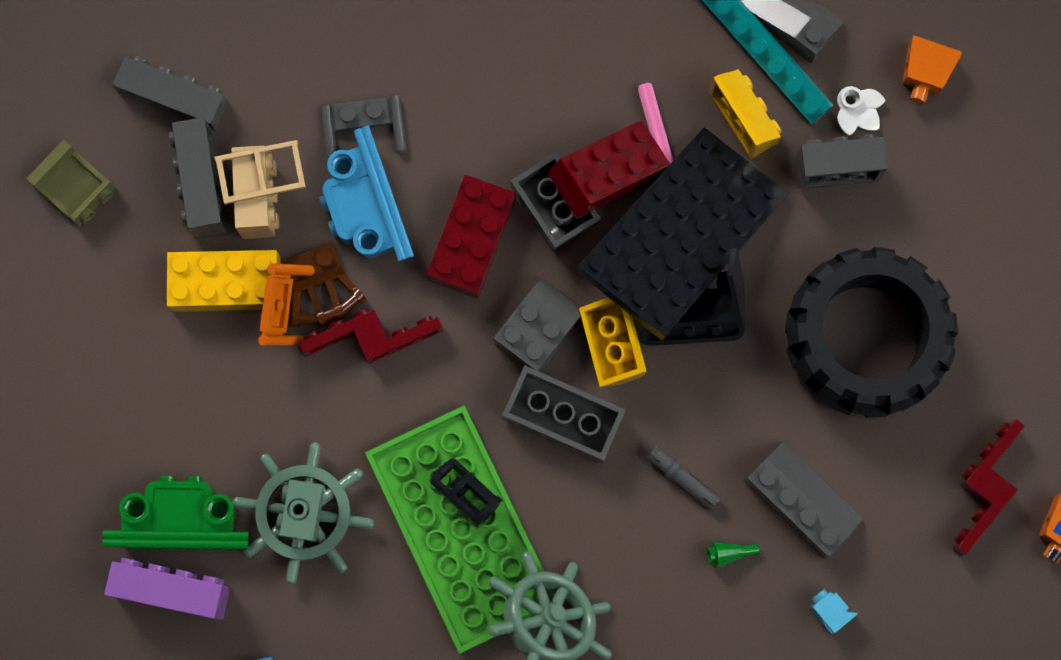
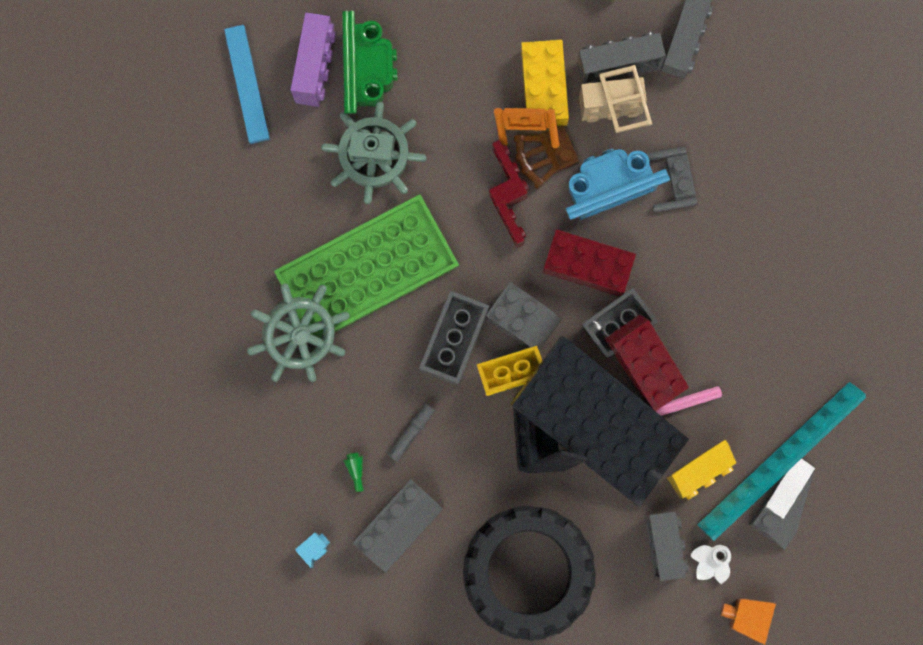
camera: 90 degrees right, 0 degrees up
(460, 487) = (395, 262): black piece -> none

